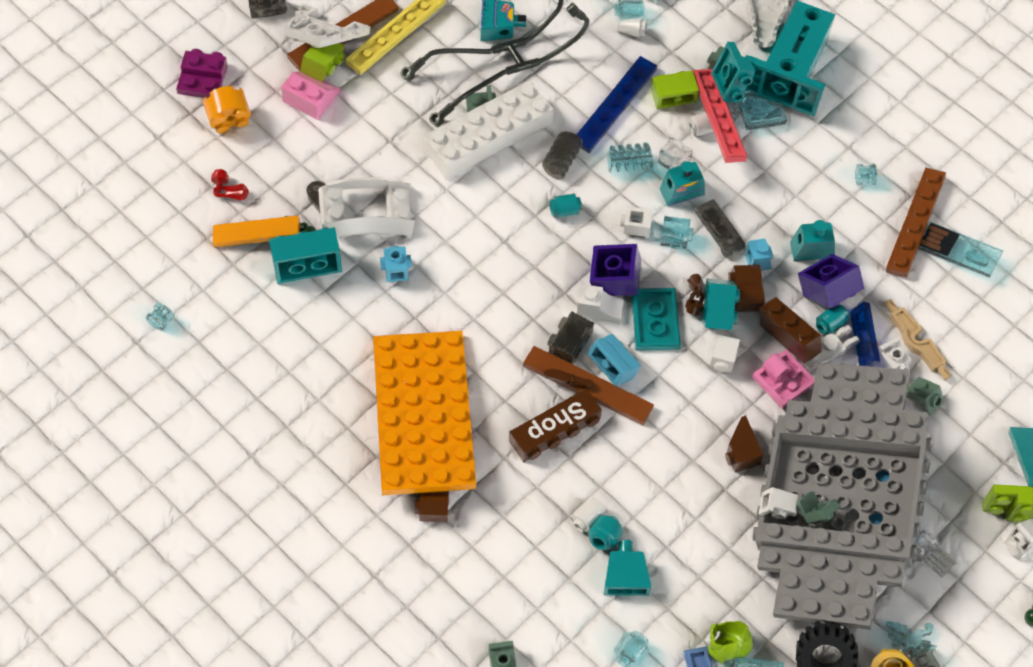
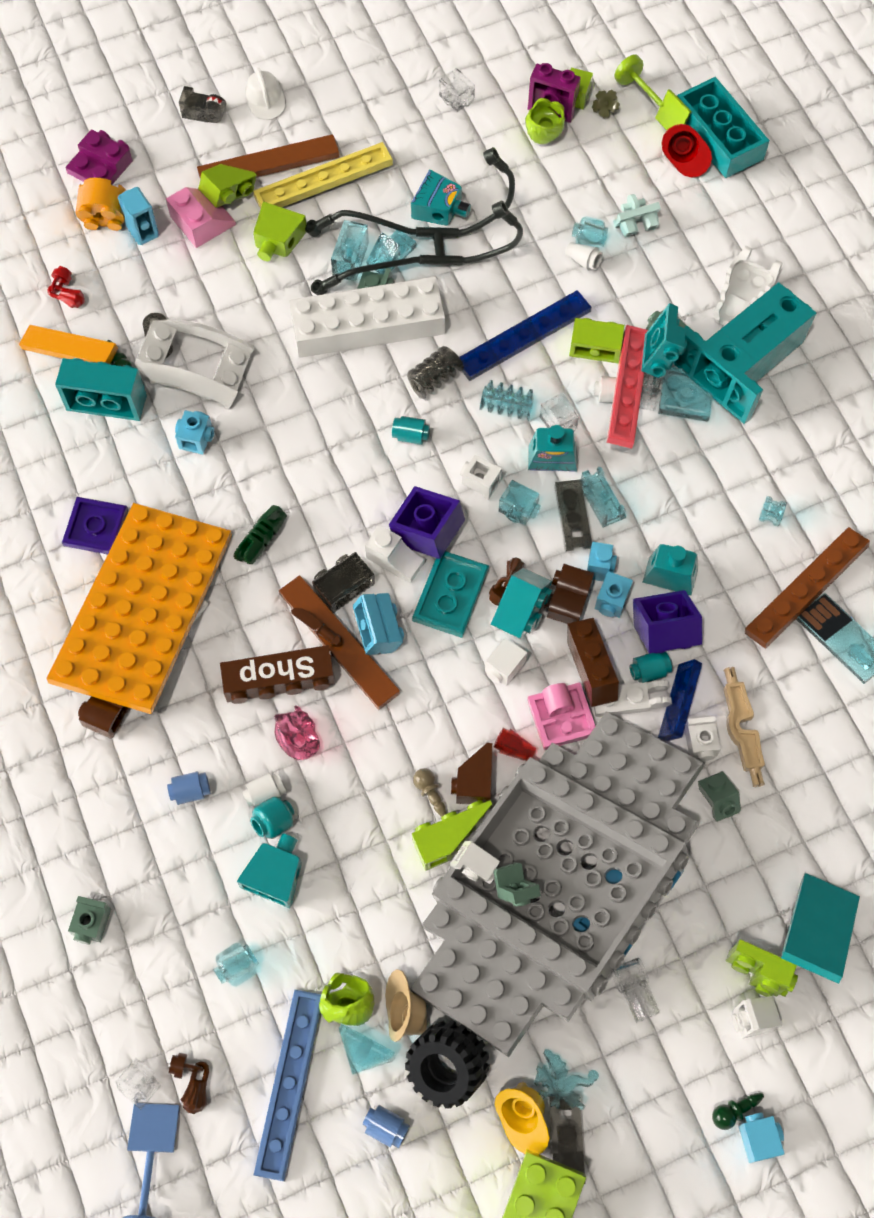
camera: 25 degrees right, 5 degrees up
(264, 107) = (138, 215): none -> medium azure brick
(318, 33) = (233, 152): white wing -> none
(349, 365) = (94, 525): none -> dark purple tile
(381, 84) = (277, 231): none -> lime torso
(449, 79) = (350, 248): none -> clear light blue brick
(478, 71) = (391, 248): none -> clear light blue slope
(487, 326) = (261, 535): none -> dark green hinge
(529, 534) = (188, 787): none -> medium blue brick
(591, 465) = (296, 734): none -> clear pink hat
(706, 464) = (425, 780): none -> dark tan bar
(735, 208) = (602, 498): none -> clear light blue hinge
(740, 501) = (443, 839): none -> lime slope
(759, 413) = (513, 745): none -> clear red cone
(771, 630) = (404, 1009): none -> tan piece
(779, 276) = (613, 595): none -> medium azure brick

